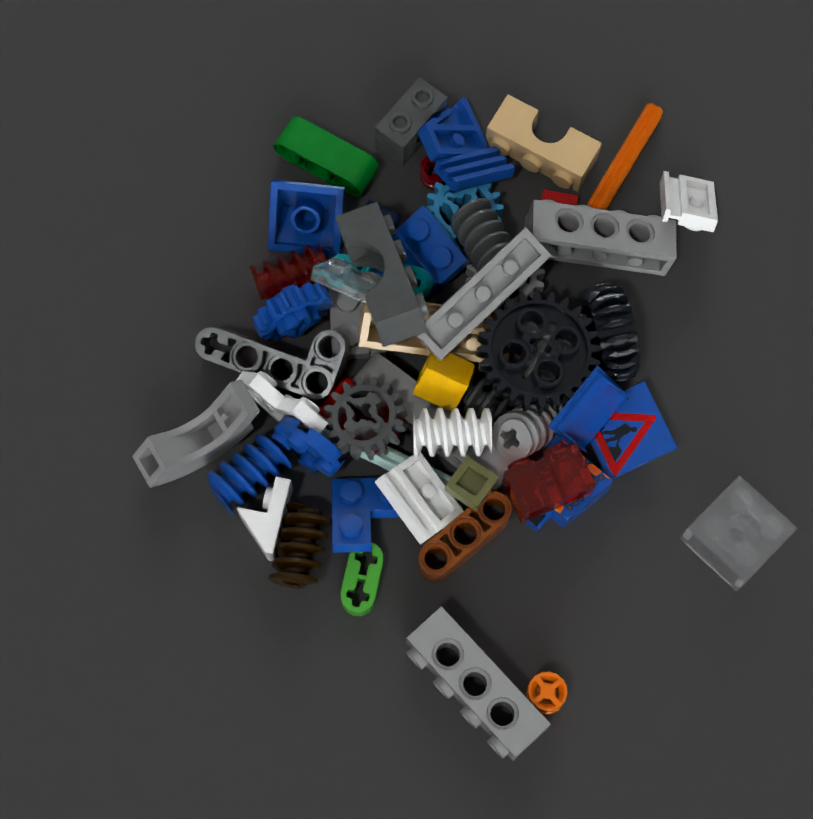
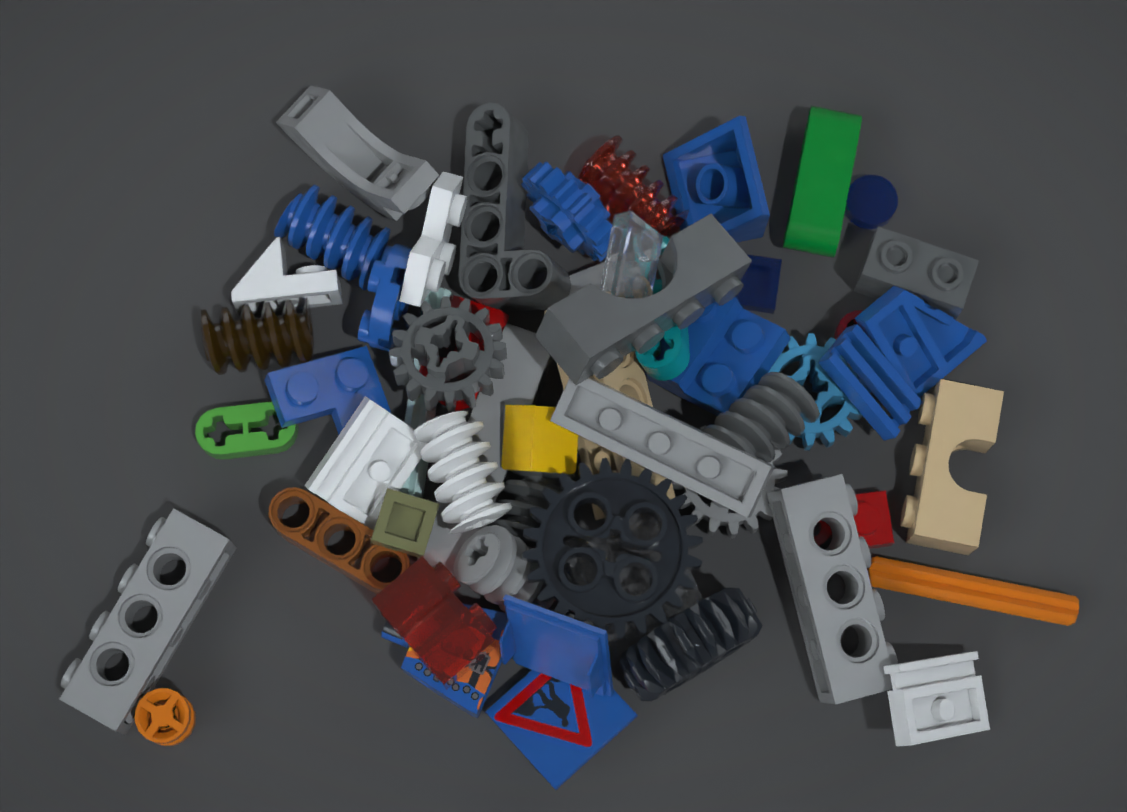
camera: 70 degrees right, 5 degrees up
(350, 130) = (871, 202): none -> clear blue tile

